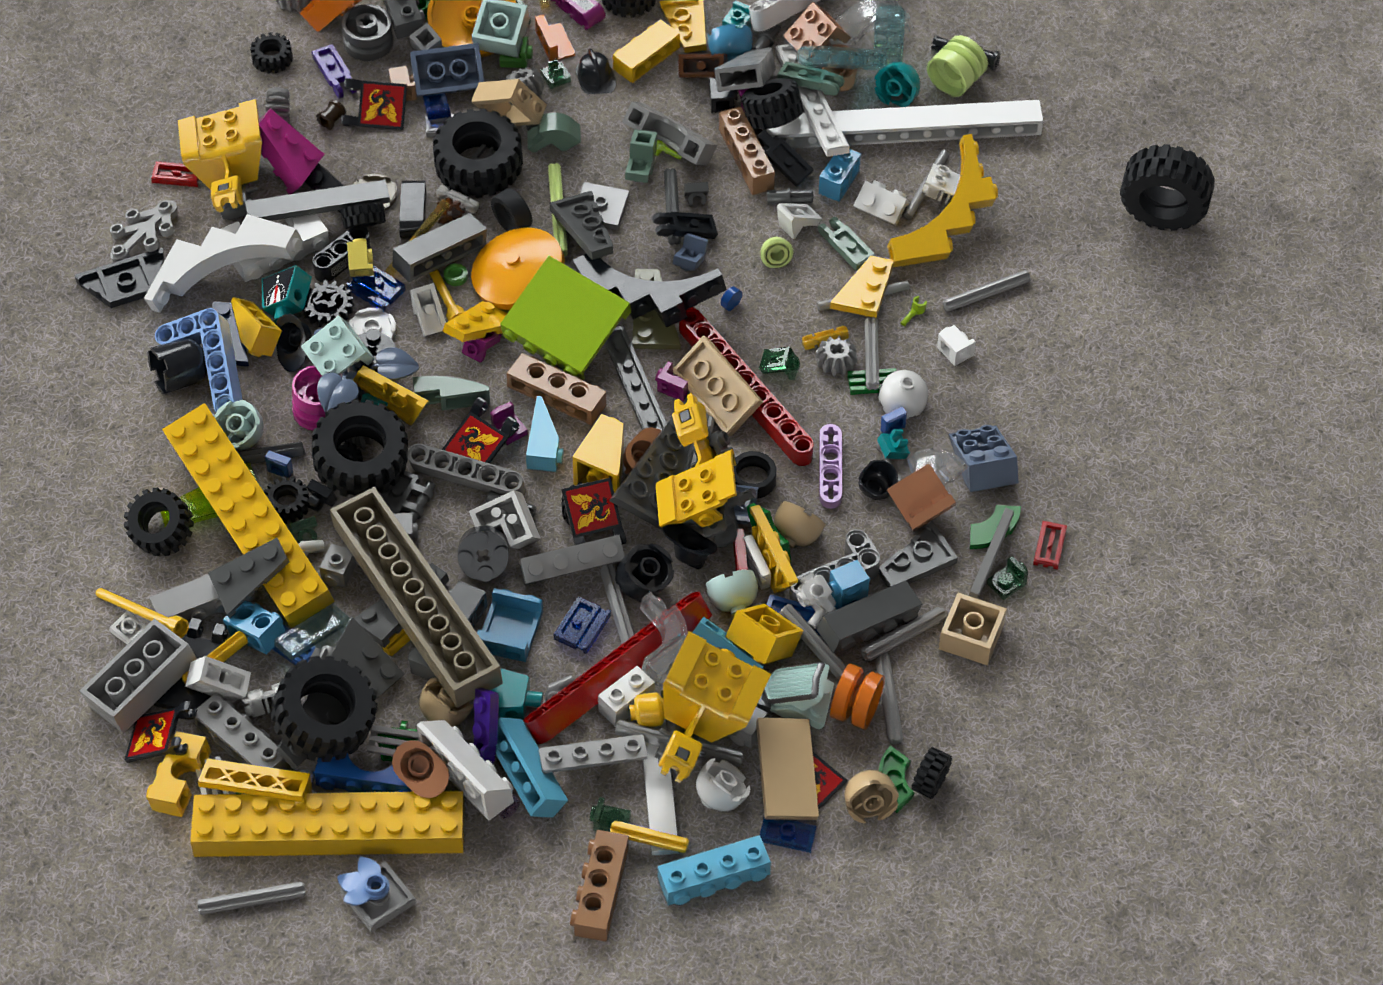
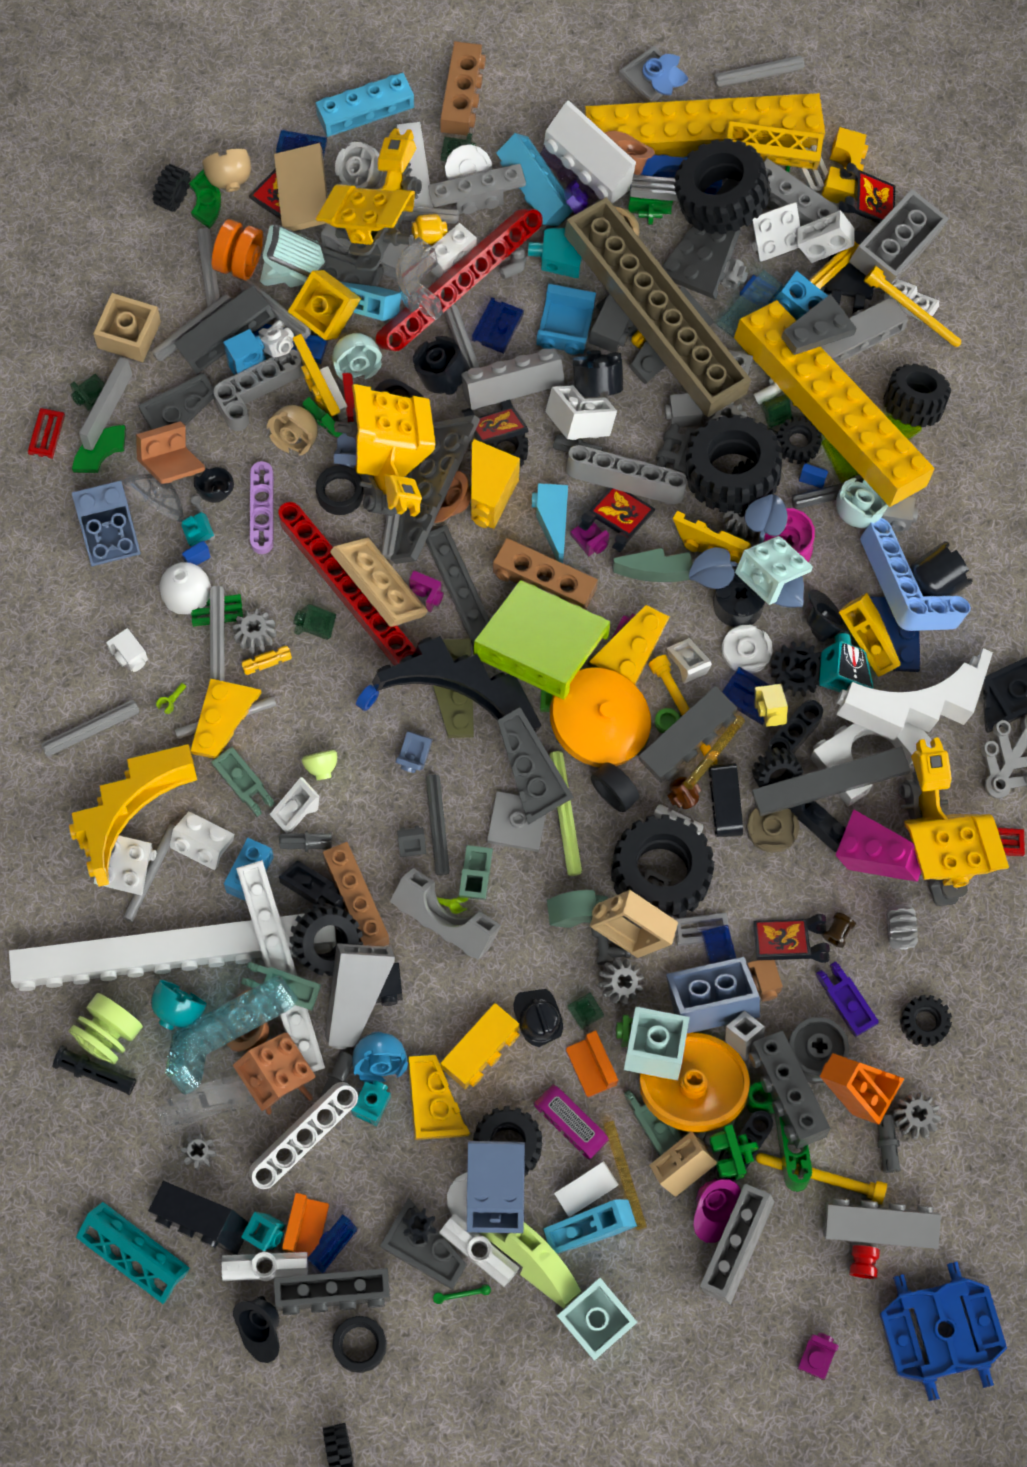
camera: 175 degrees right, 15 degrees up
(599, 786) = (467, 161): none -> white tile
(651, 837) = (422, 126): yellow axle -> none
(683, 223) = (420, 784): black hinge -> none
(700, 65) = (410, 1016): reddish brown brick -> none

